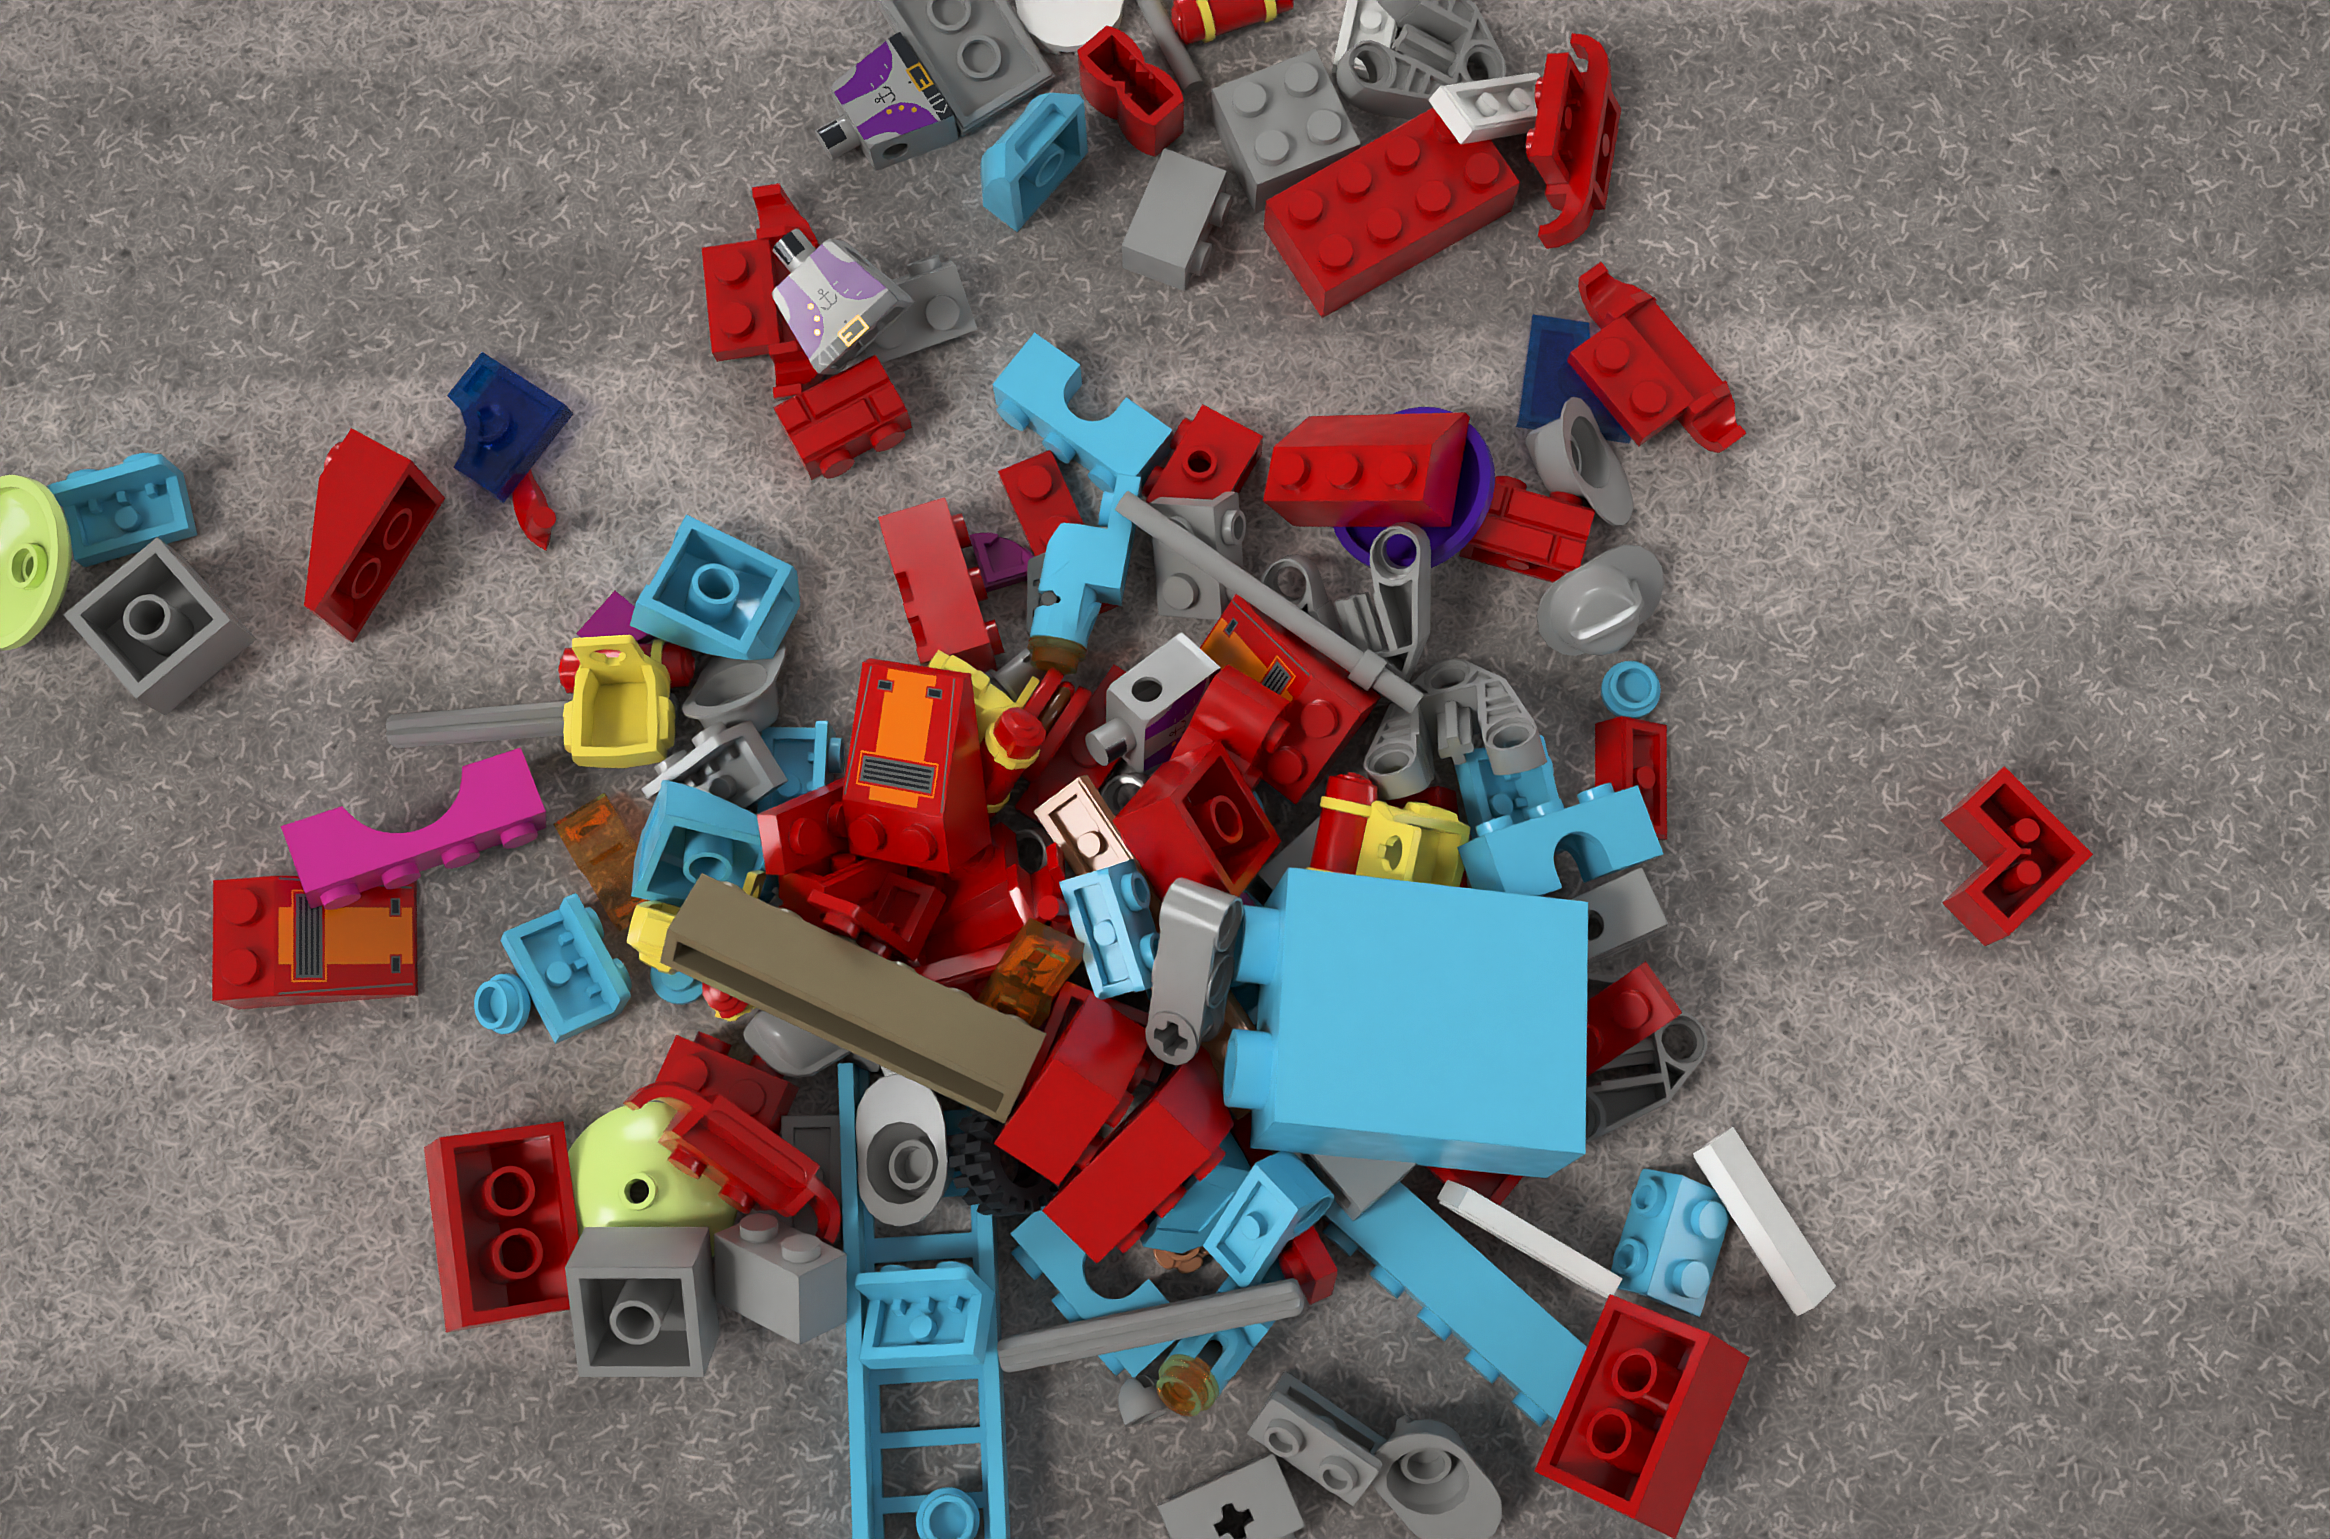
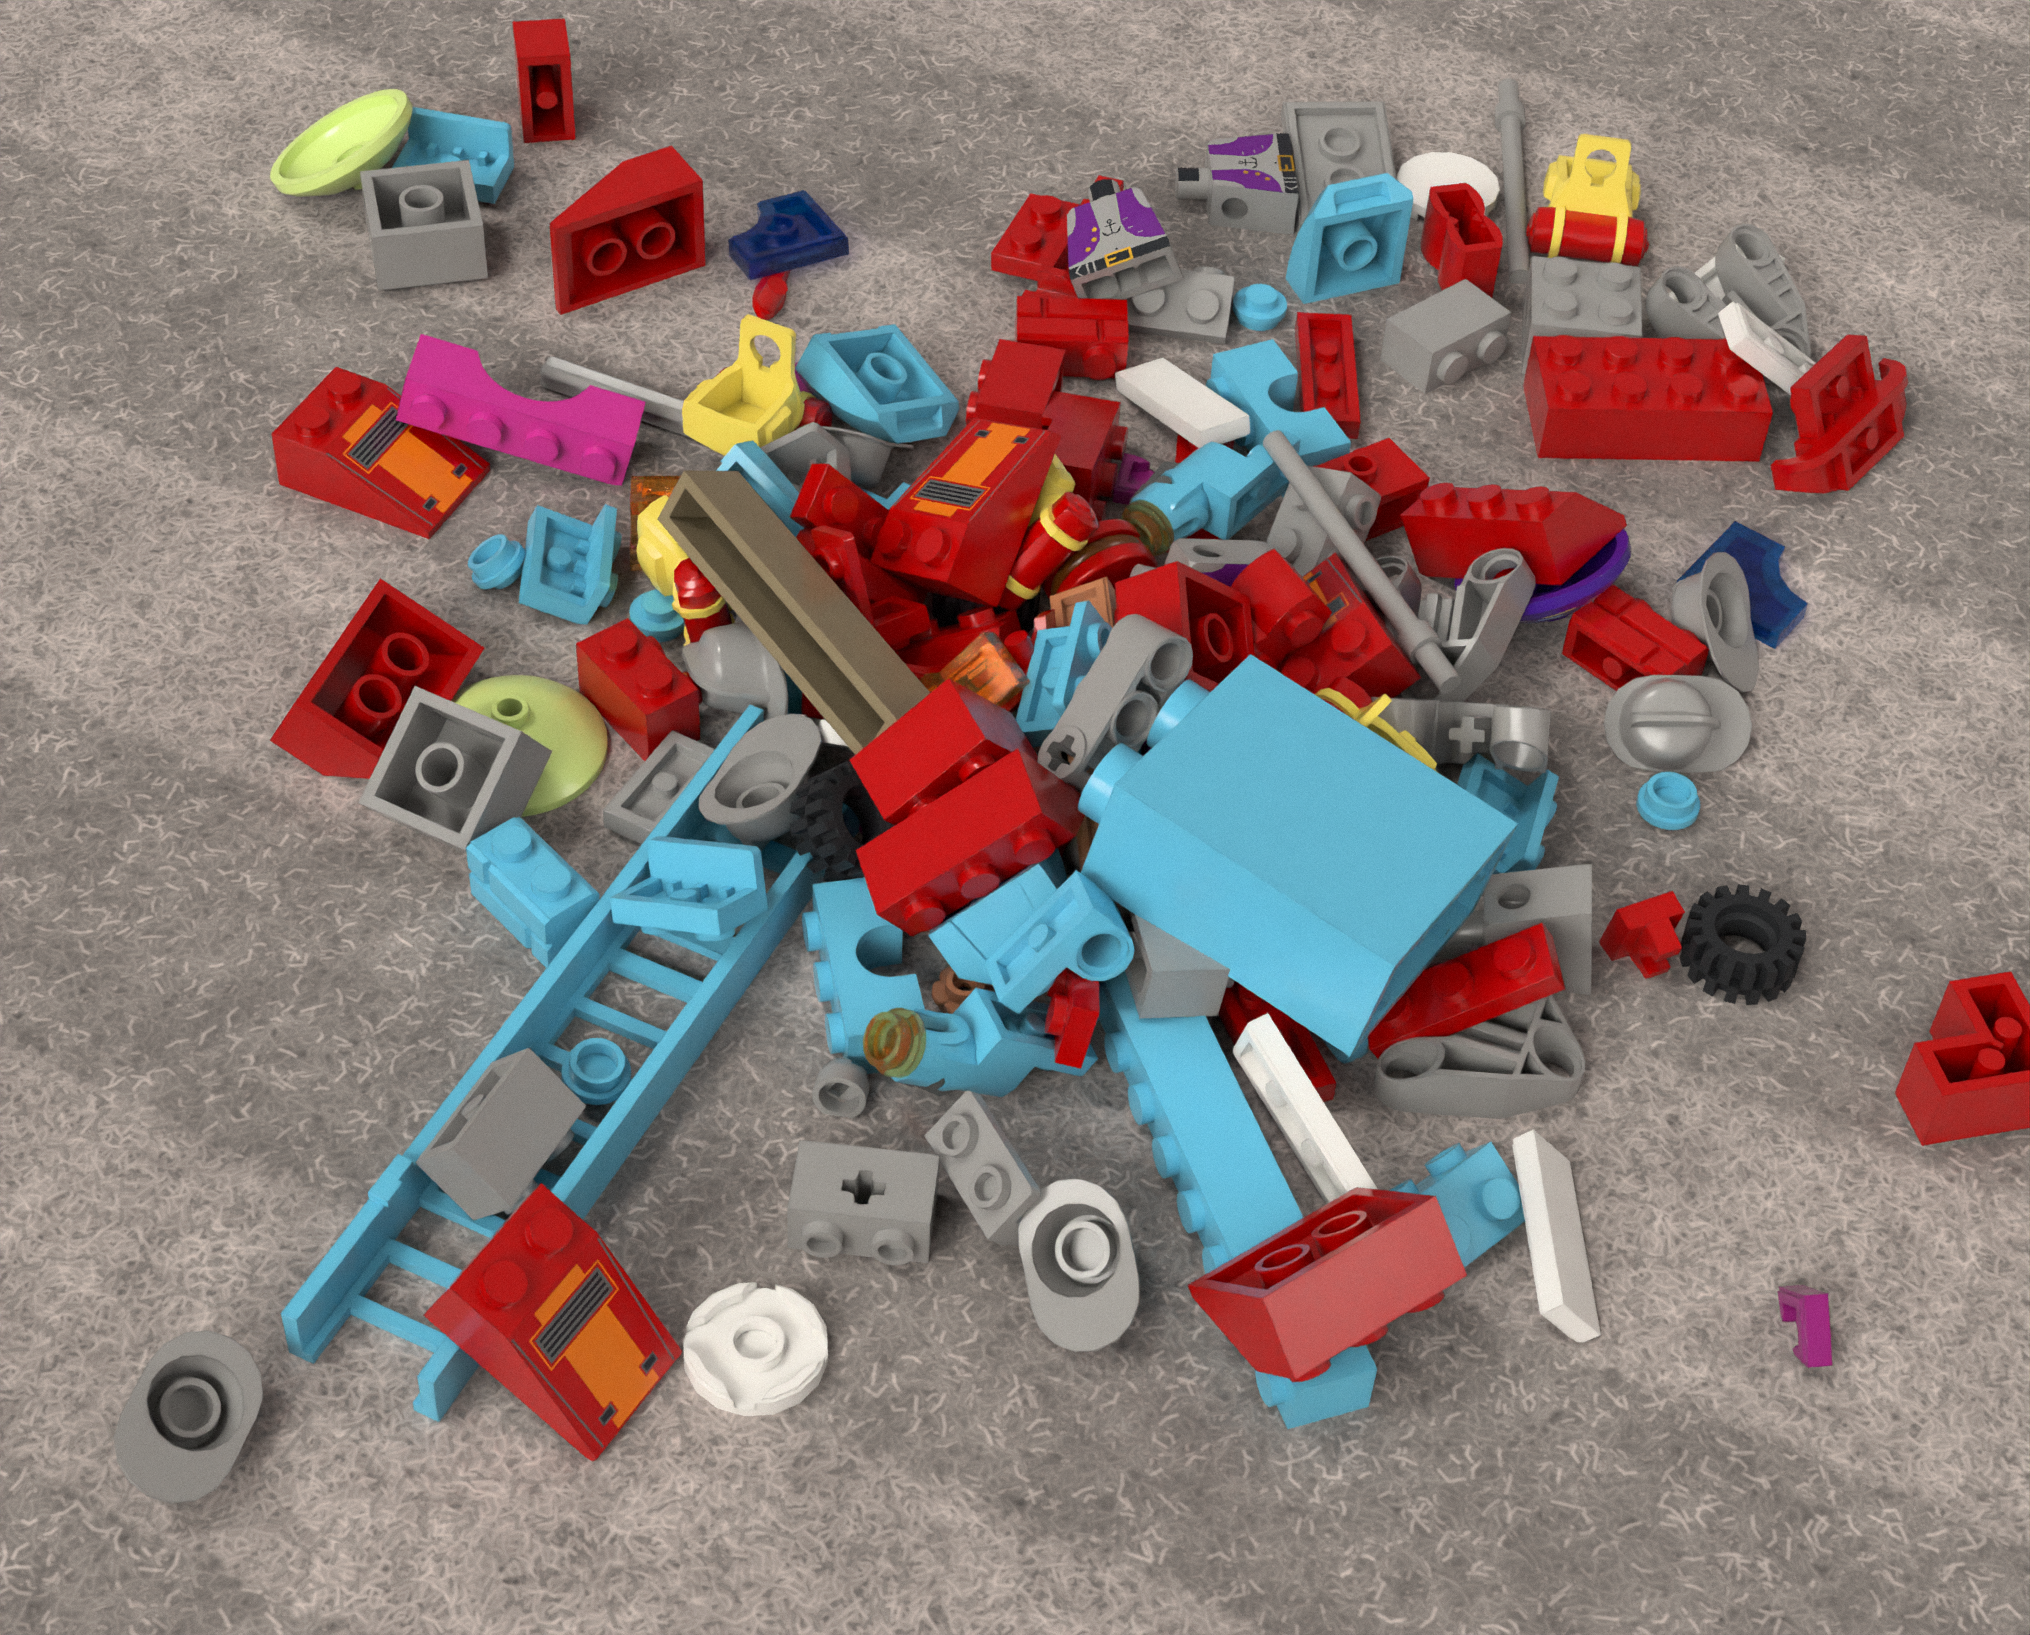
camera: 25 degrees right, 30 degrees down
(147, 364) = (544, 80): none -> red brick
(740, 1156) = (617, 703): red plate -> none
(776, 1368) = (528, 887): none -> medium azure brick
(781, 1277) = (589, 809): light grey brick -> none
(844, 534) = (1017, 384): none -> red brick
(985, 267) = (1259, 307): none -> medium azure plate
(991, 451) = (1182, 403): none -> white tile
(1093, 328) = (1328, 368): none -> red plate
(1151, 1325) = (895, 986): light grey axle -> none
(1600, 833) = (1550, 825): medium azure arch -> none
(1631, 755) = (1634, 861): red slope -> none
(1648, 367) = (1822, 594): red plate -> none
(1687, 859) = (1645, 933): none -> red tile
(1788, 797) = (1735, 970): none -> black tyre
(1987, 1183) = (1811, 1313): none -> magenta tile

